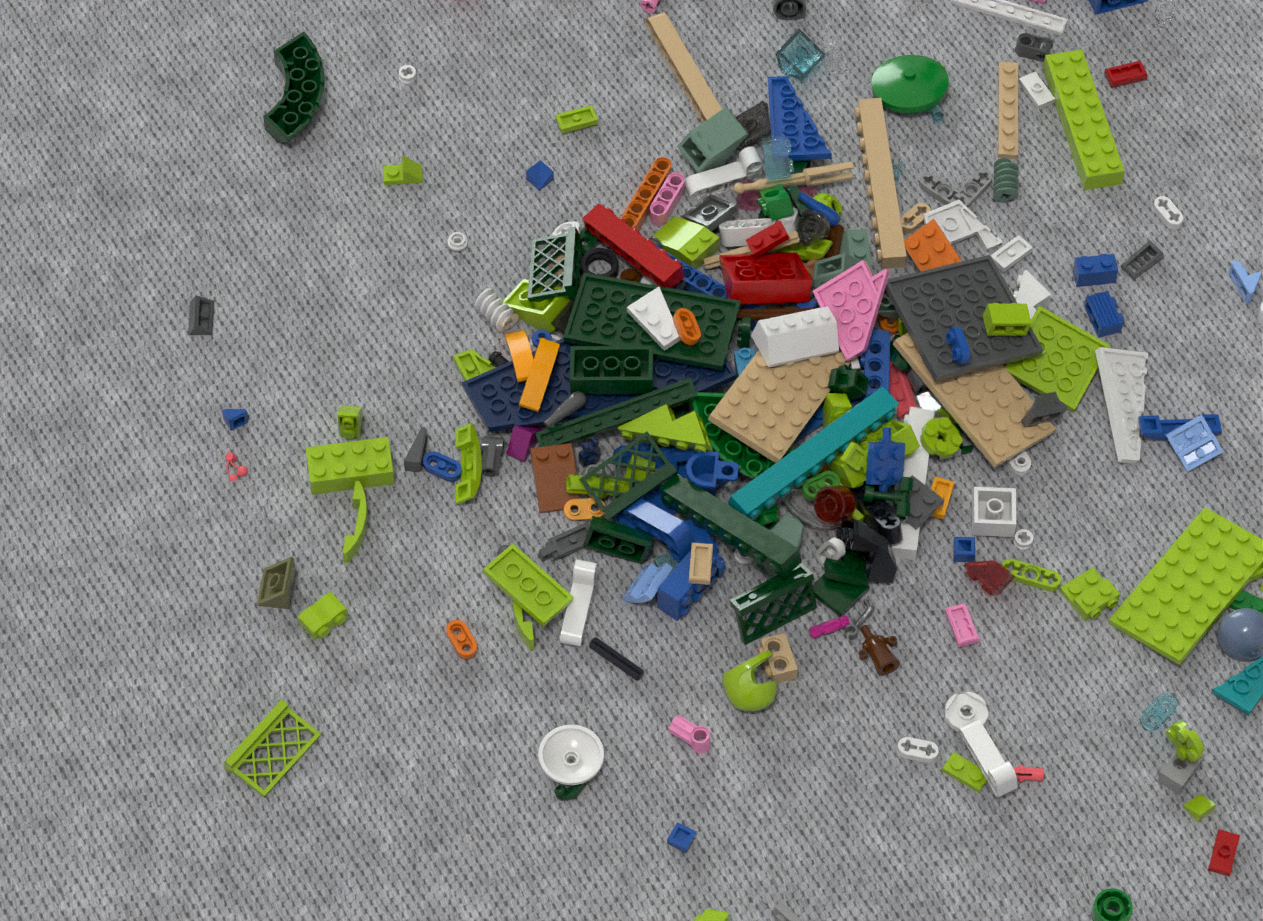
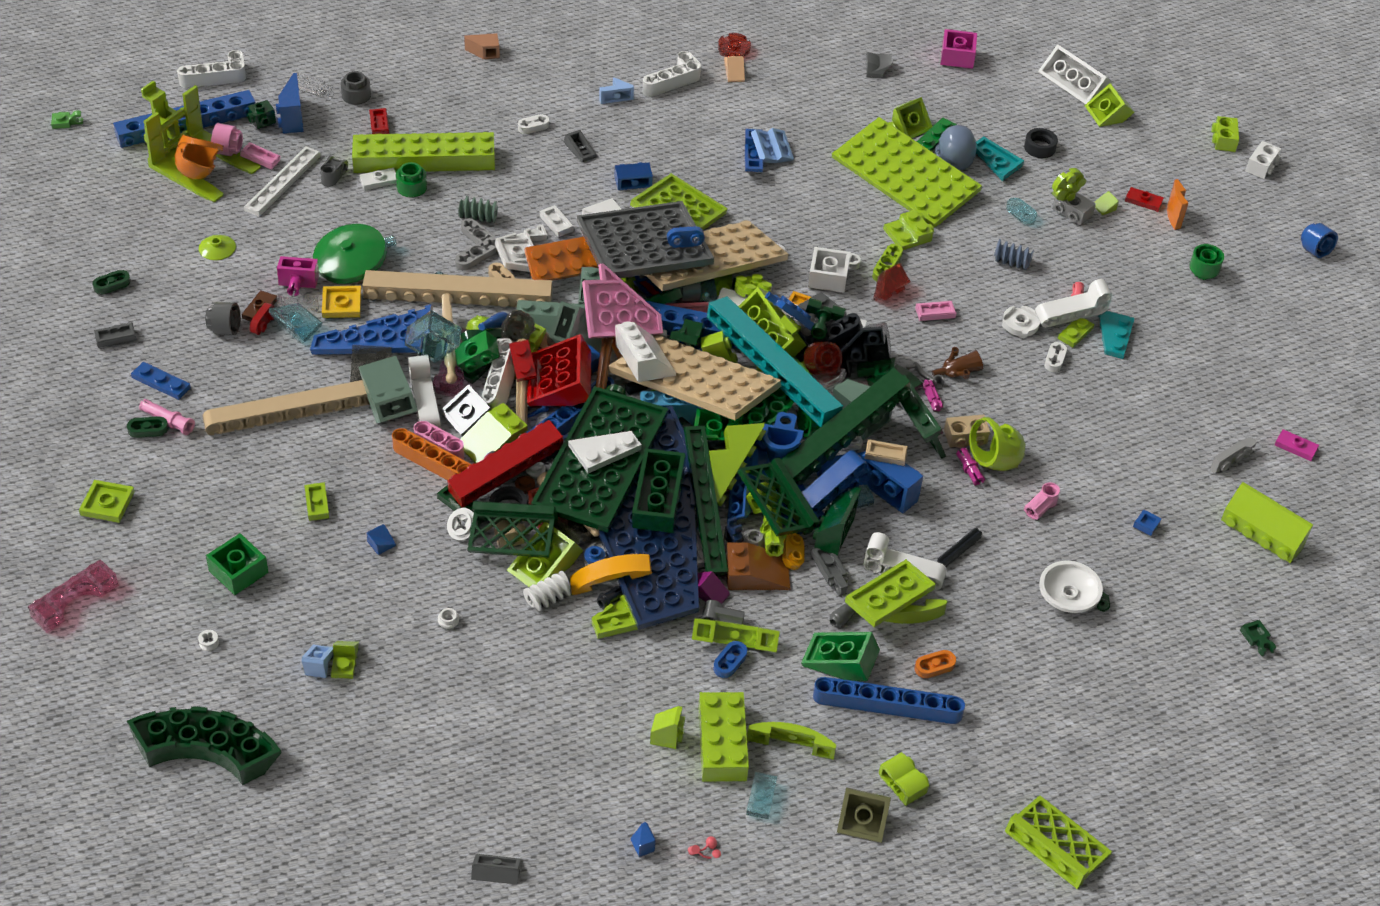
camera: 85 degrees left, 10 degrees down
(292, 503) = (761, 795): none -> clear light blue plate
(391, 149) = (316, 660): none -> light blue slope
(410, 608) = (900, 701): none -> blue beam
(414, 458) = (713, 677): dark grey slope -> none
(458, 558) = (842, 654): none -> green slope
(487, 73) = (237, 564): none -> green brick
(539, 375) = (646, 548): light orange slope -> none
(568, 406) = (690, 535): dark grey piece -> none
(647, 583) = (886, 509): light blue slope -> none
(686, 326) = (622, 423): orange plate -> none
(728, 663) = (970, 466): none -> dark pink pin
(791, 27) = (261, 319): none -> red plate
(821, 28) = (261, 298): none -> reddish brown plate
(831, 549) = (865, 371): white plate -> none
(841, 90) = (341, 301): none -> yellow plate
(865, 45) = (297, 273): none -> dark pink brick
(964, 549) = (861, 296): blue slope -> none
(974, 814) = (1115, 333): none -> teal wing
(1007, 319) = (657, 207): lime brick -> none
(1008, 110) = (395, 199): tan plate -> none
(1035, 116) = (411, 180): none -> green piece
(1044, 409) = (742, 217): dark grey slope -> none
(1072, 700) = (1013, 255): none -> sand blue piece
(1095, 270) = (587, 172): blue brick -> none
(1124, 393) = (726, 177): white wing -> none
(1171, 42) = (355, 88): none -> dark grey piece
(1209, 876) = (1177, 205): none -> orange slope

